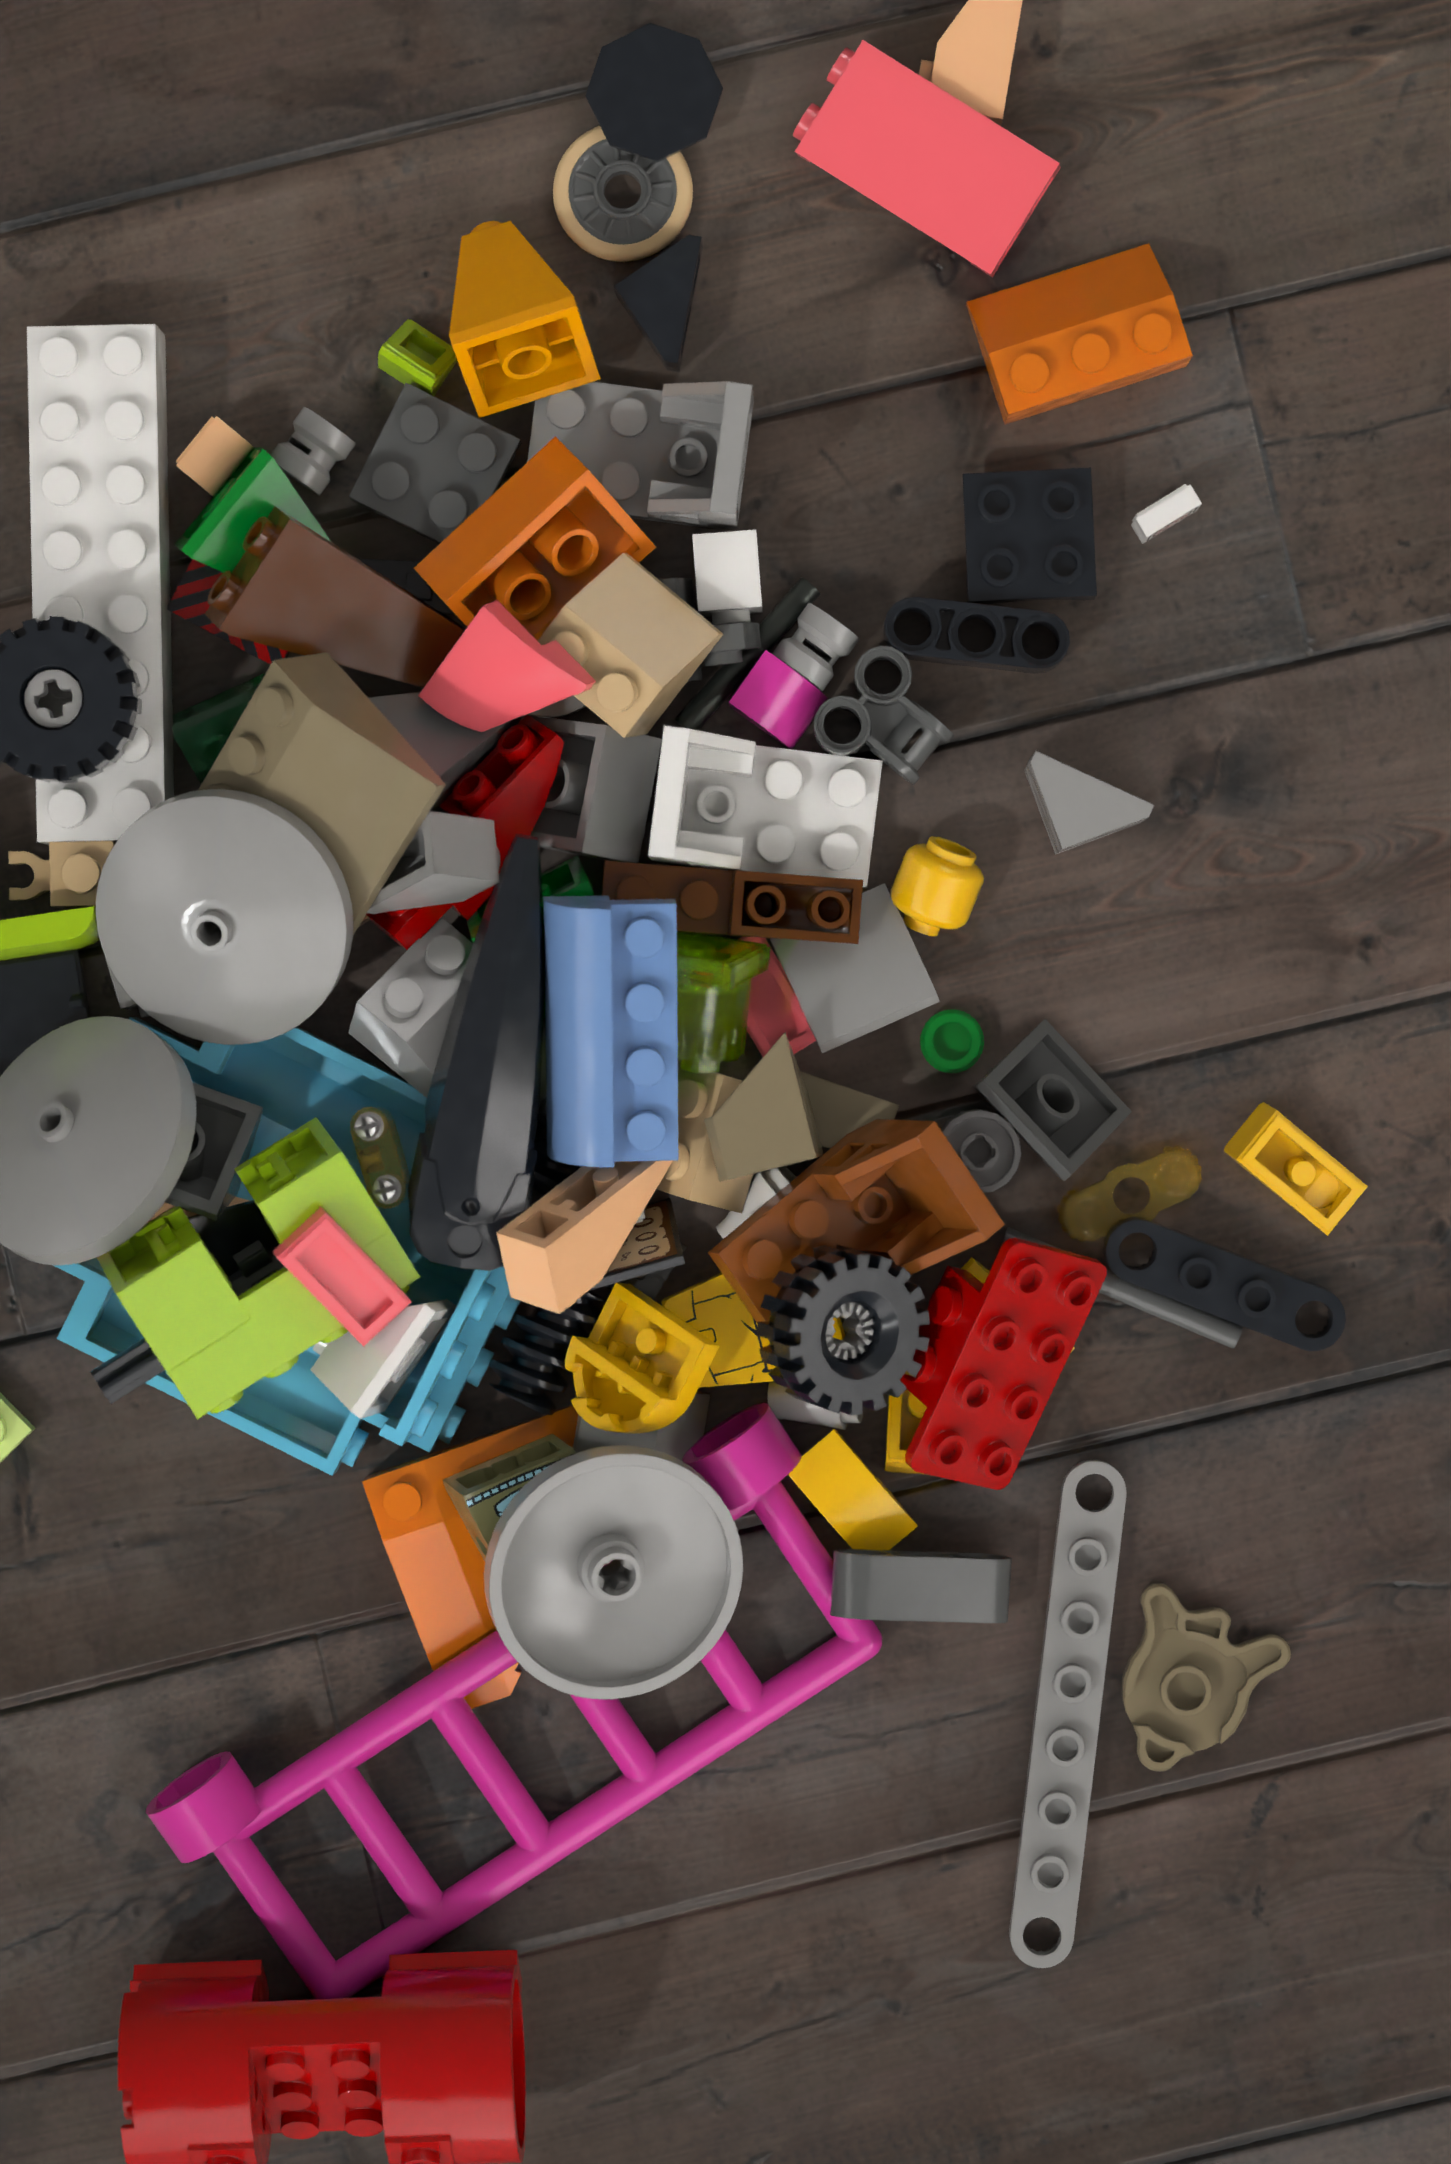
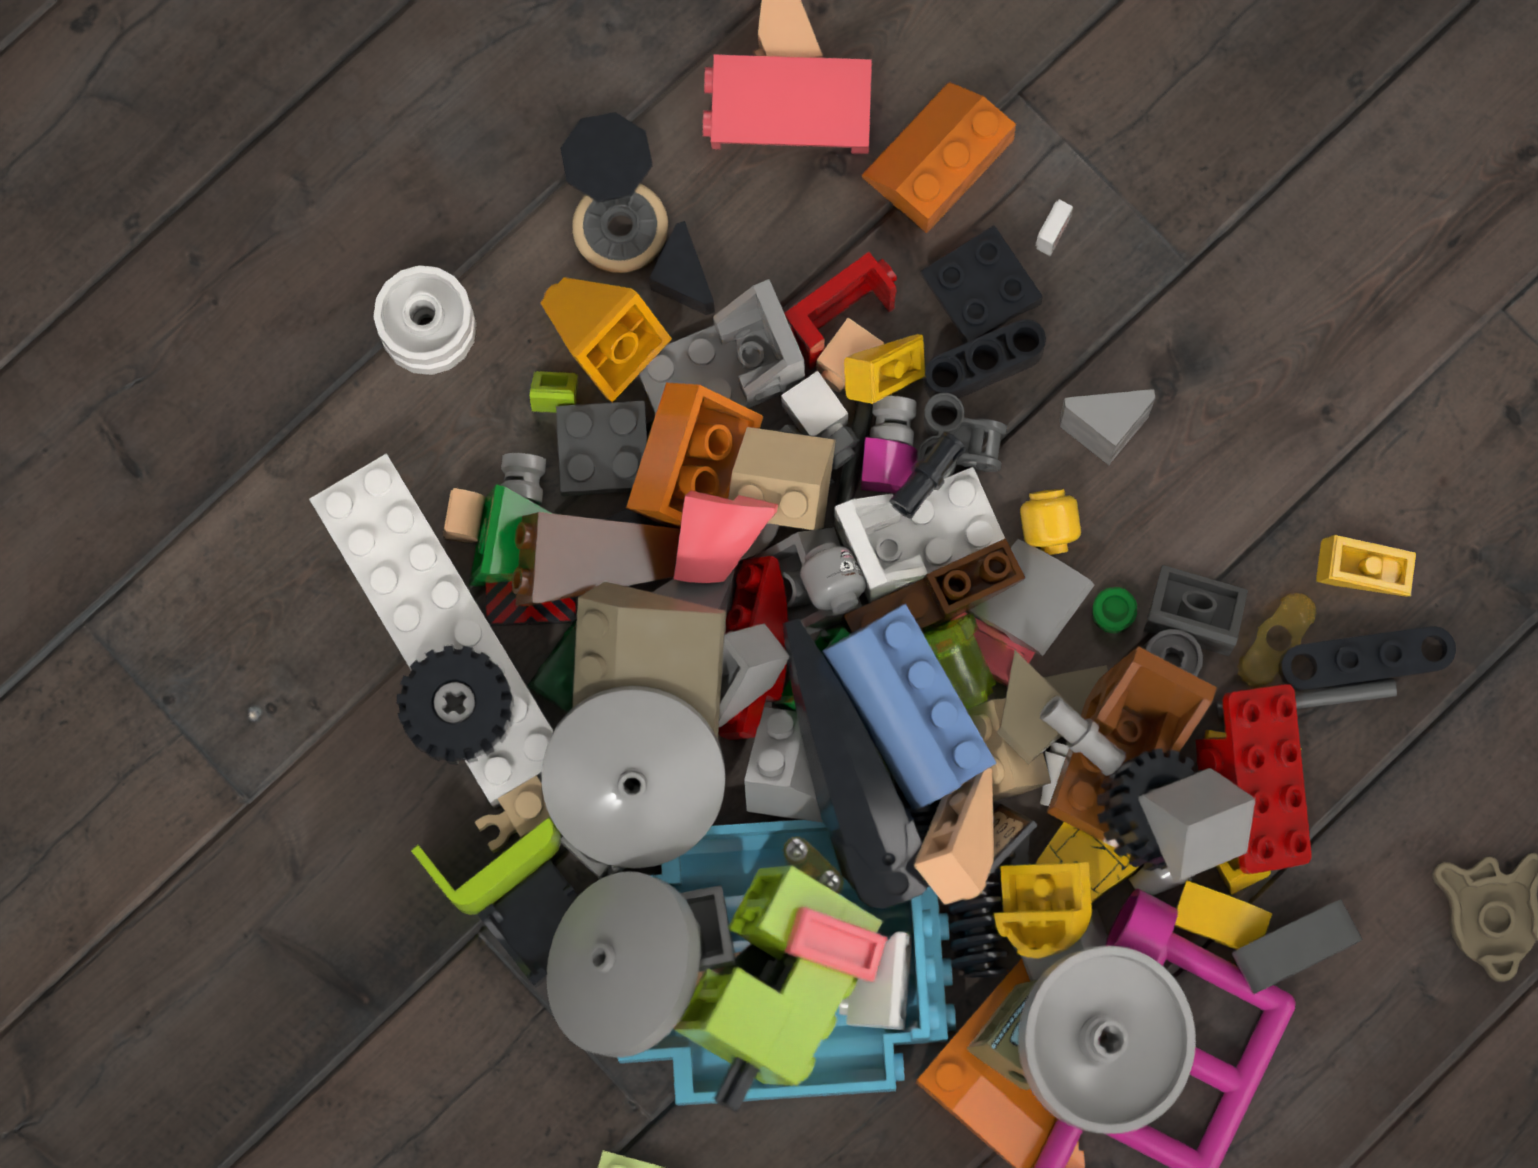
camera: 25 degrees left, 10 degrees down
(297, 137) = (418, 295): none -> white wheel
(612, 811) = (833, 578): none -> light grey head
(803, 1188) = (1082, 735): none -> light grey pin
(808, 532) = (847, 341): none -> light nougat brick
(811, 745) = (927, 475): none -> black pin
(829, 448) = (837, 296): none -> red window
(841, 575) = (884, 369): none -> yellow slope
(880, 1377) = (1199, 822): none -> light grey slope
(1067, 1714) = (1433, 978): light grey plate -> none

